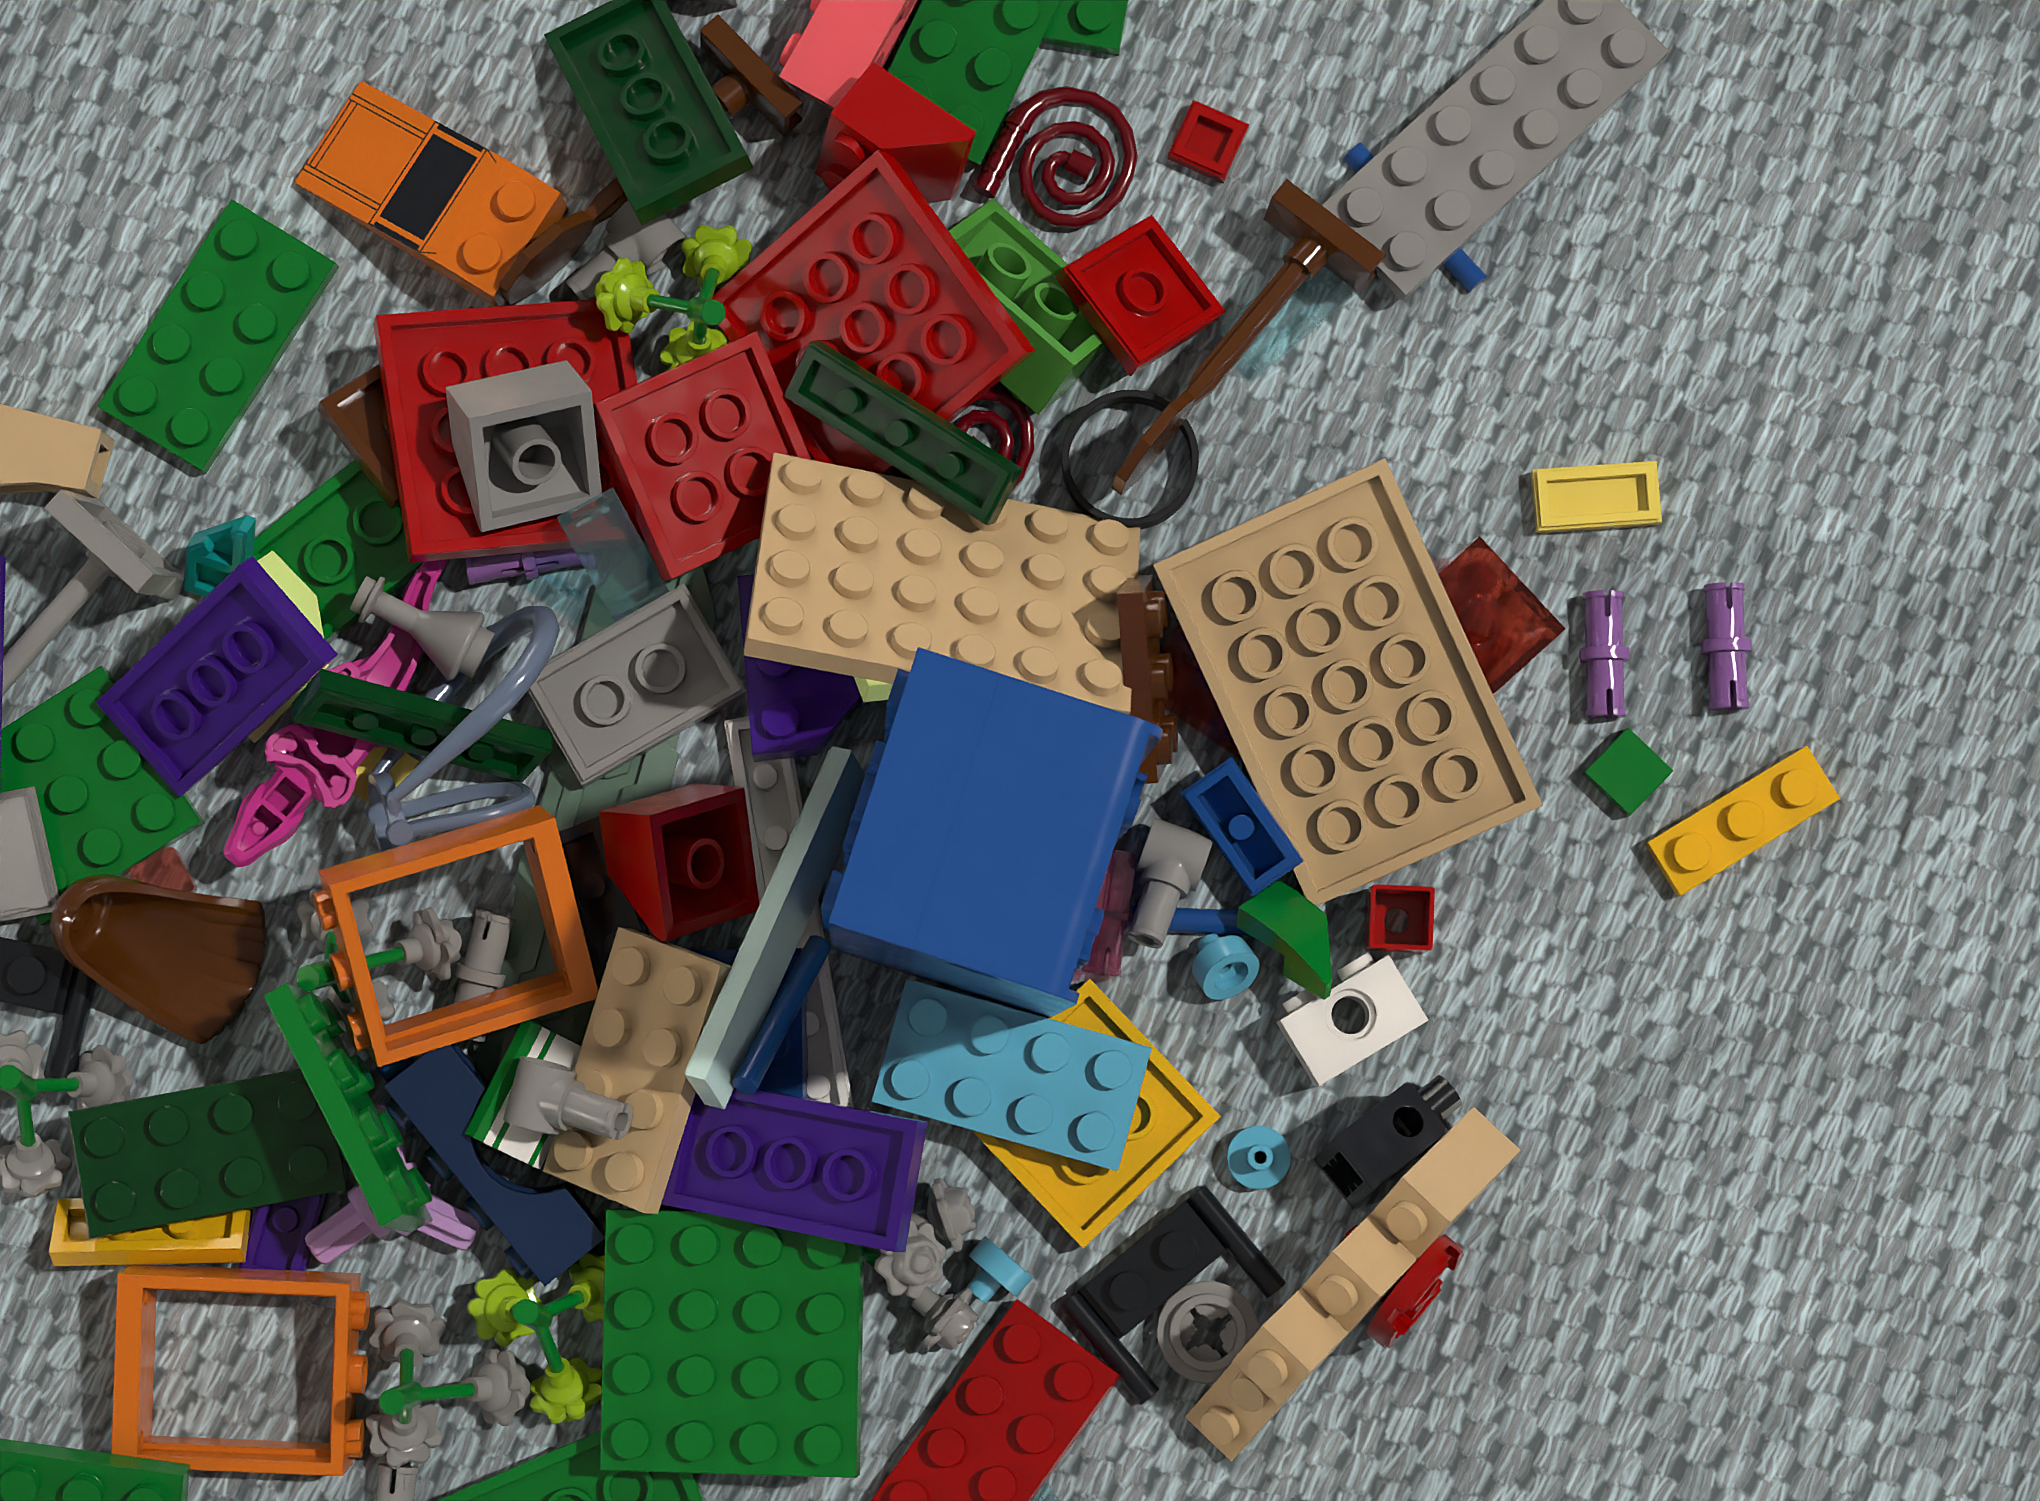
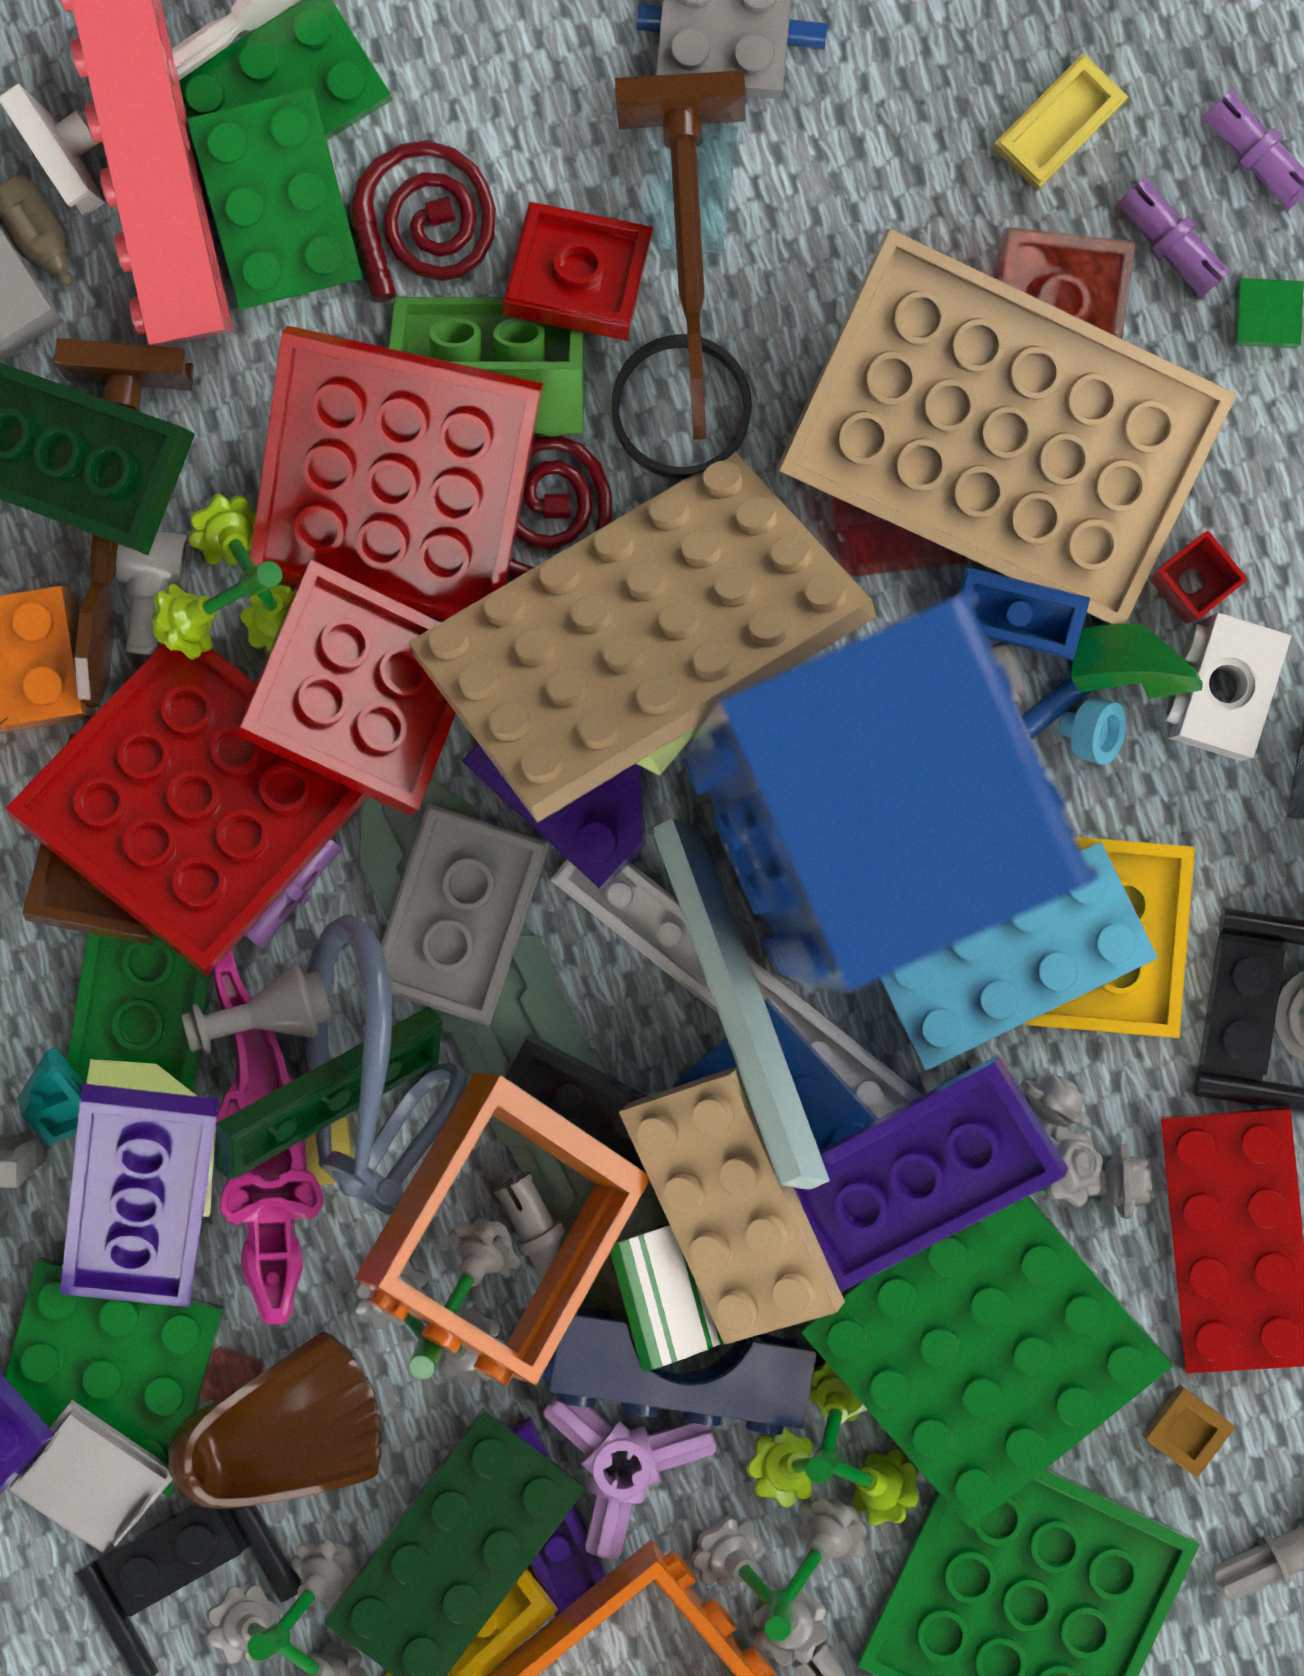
camera: 40 degrees left, 5 degrees up
(341, 1090) = (555, 1440): green plate -> none
(525, 443) = (213, 805): light grey slope -> none
(550, 1099) = (688, 1290): light grey pin -> none
(613, 554) = (355, 829): clear light blue tile -> none
(683, 857) = (617, 1014): red slope -> none
(781, 1015) = (803, 1068): blue bar -> none
(899, 122) = (277, 296): red slope -> none
(903, 432) = (495, 538): dark green tile -> none
(996, 1271) = (1128, 1111): medium azure tile -> none
(1145, 669) = (844, 554): reddish brown plate -> none
(1208, 141) = (521, 106): red tile -> none
(1241, 1157) = (1232, 856): medium azure tile -> none

